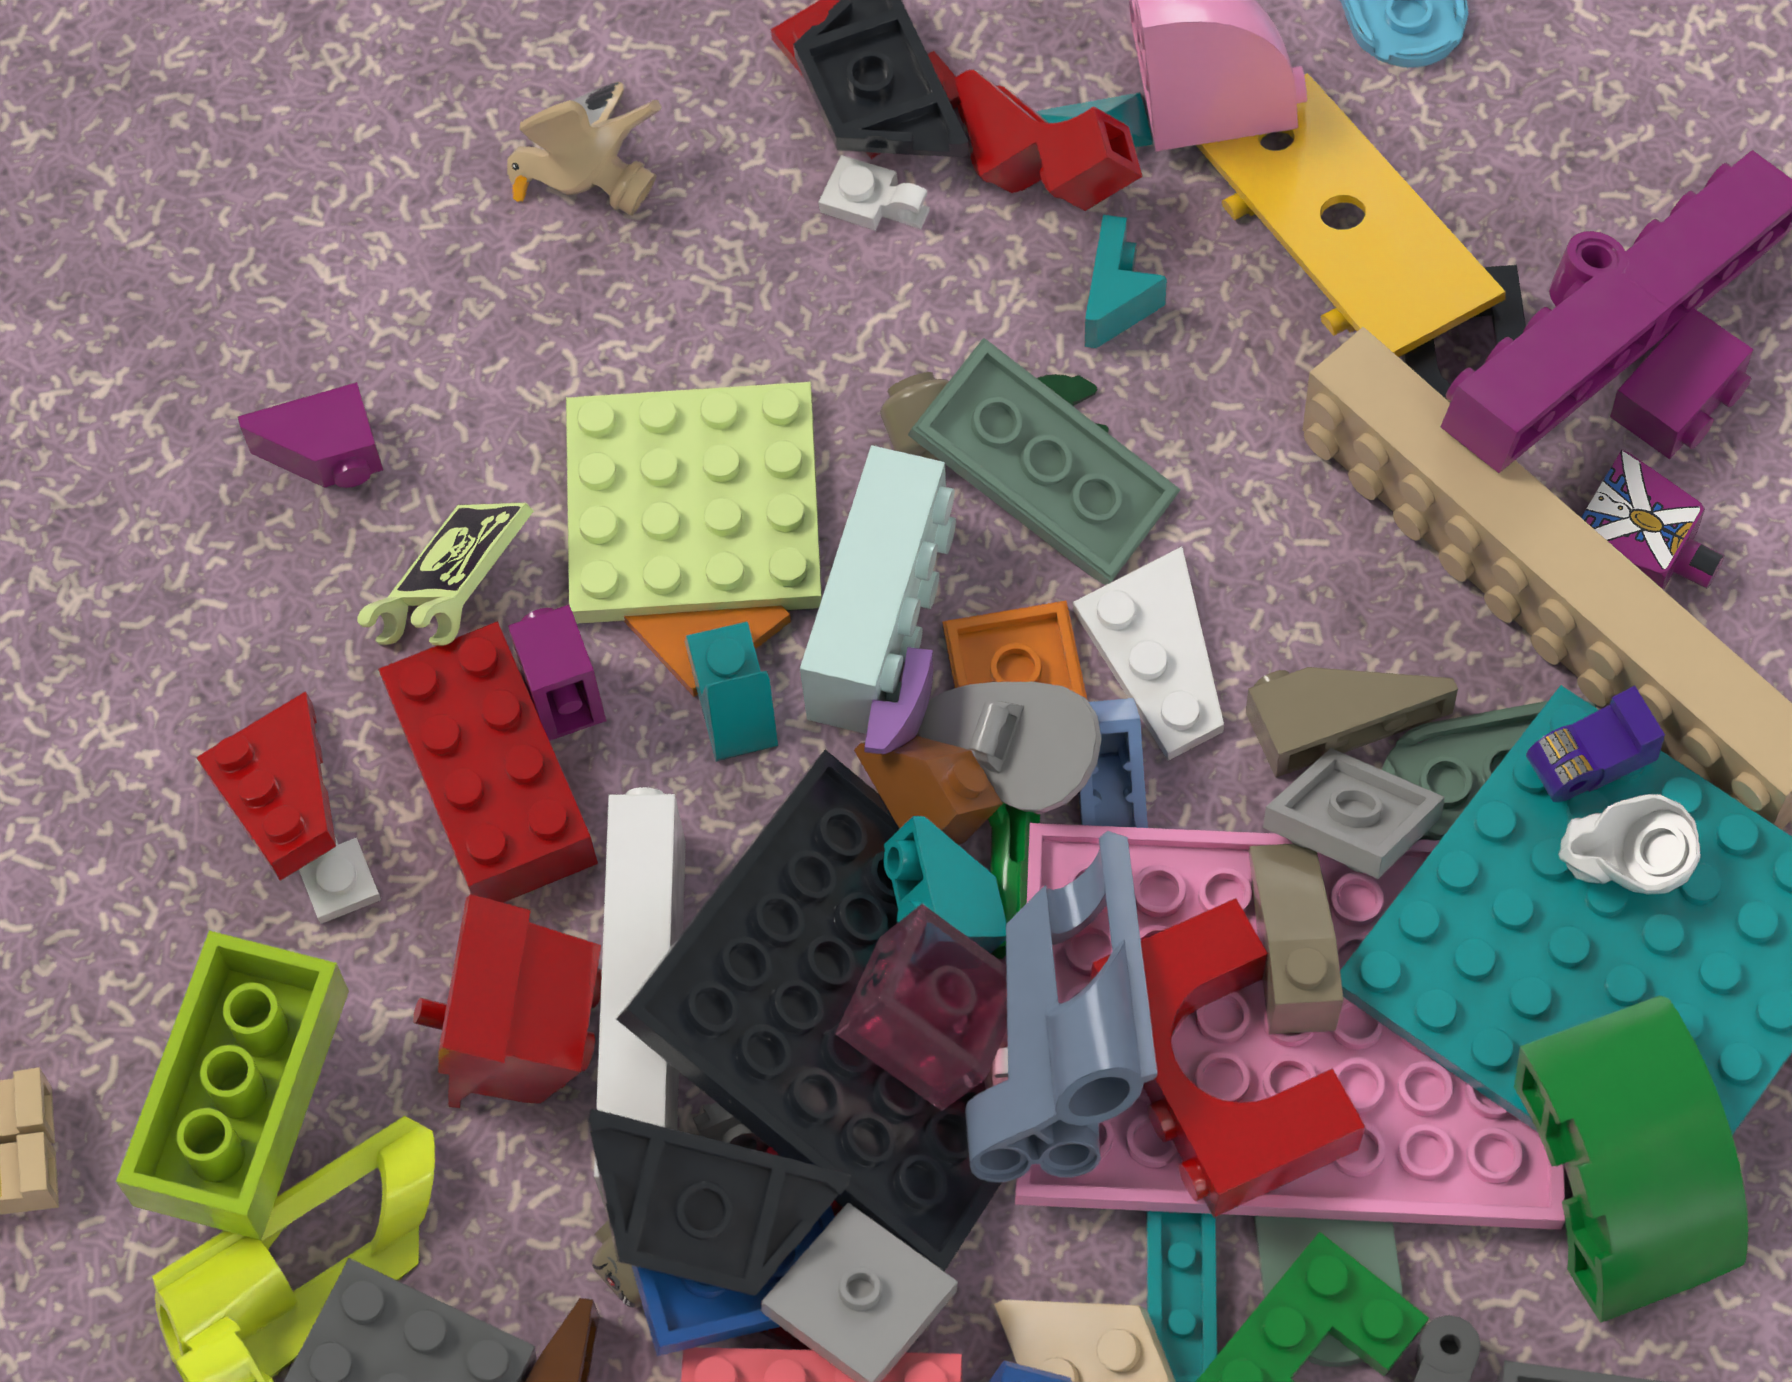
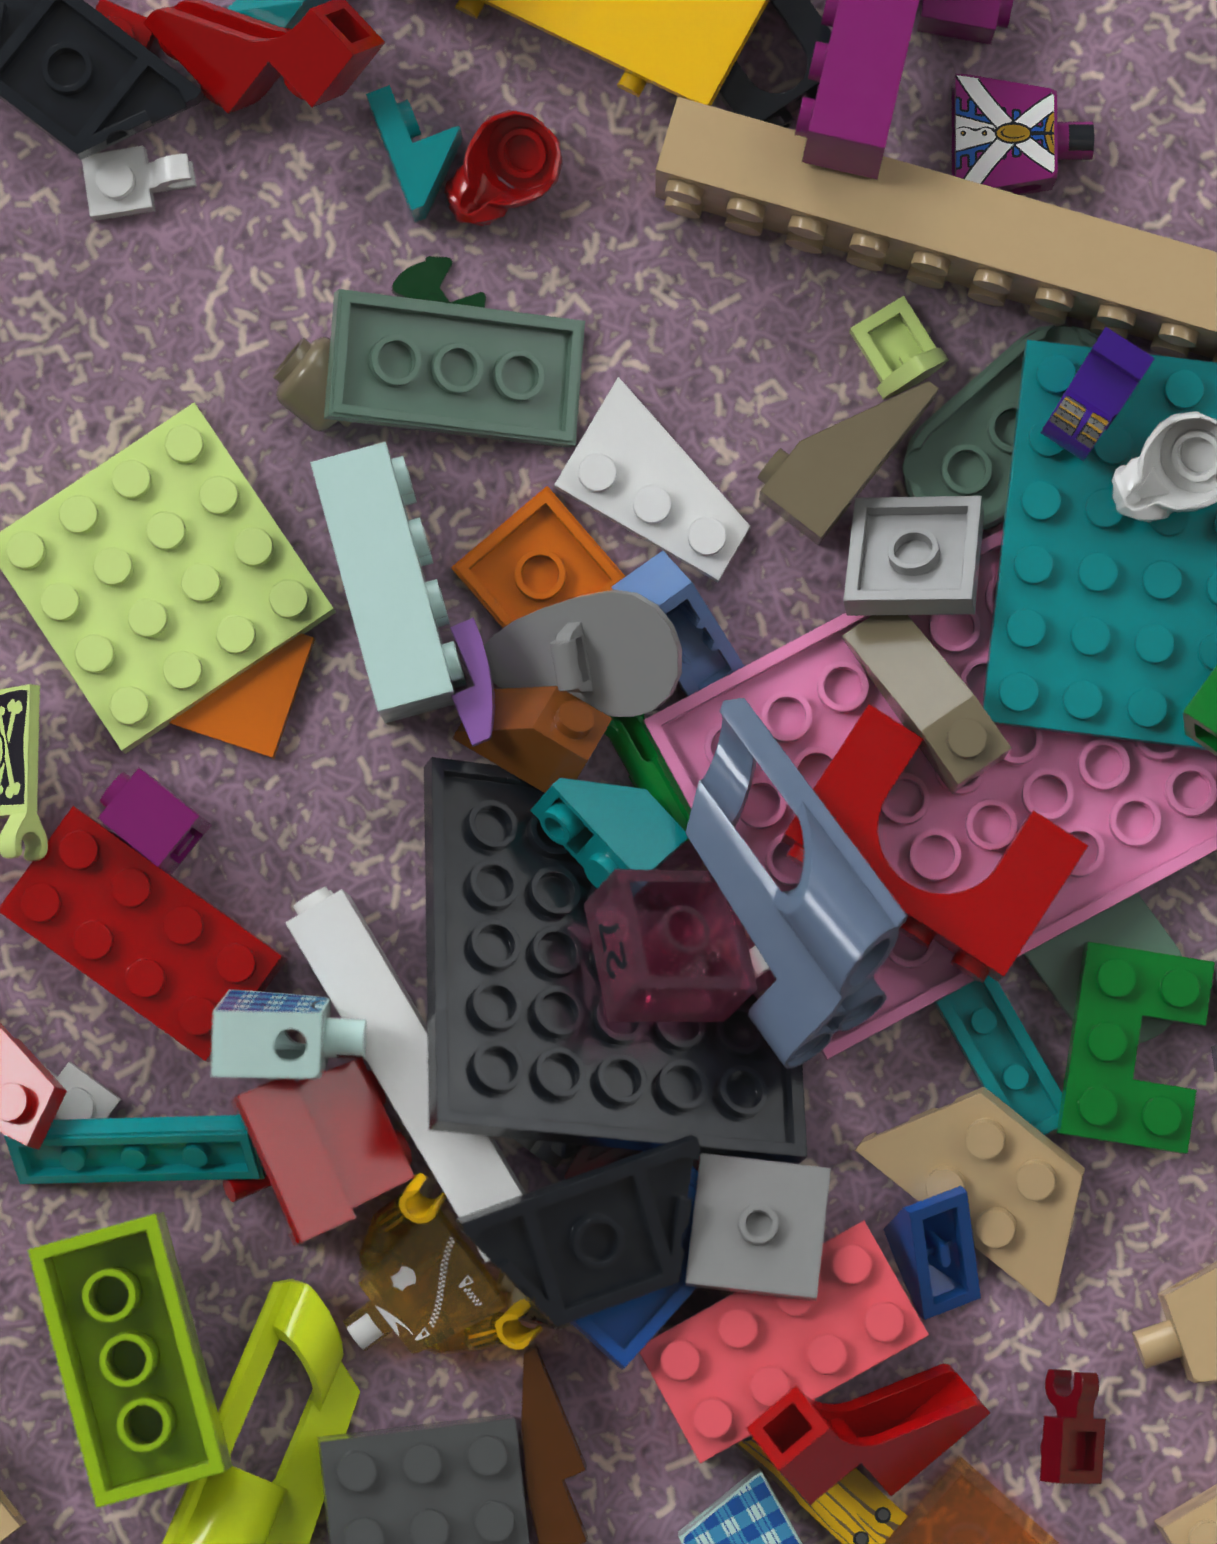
camera: 30 degrees left, 20 degrees up
(357, 931) = (139, 1151): none -> teal tile
(537, 1188) = (430, 1284): none -> clear yellow torso
(540, 876) = (254, 1040): none -> light aqua torso
(732, 691) = (309, 739): teal slope -> none
(1196, 321) = (516, 150): none -> red hair
(1445, 647) = (897, 348): none -> yellowish green tile

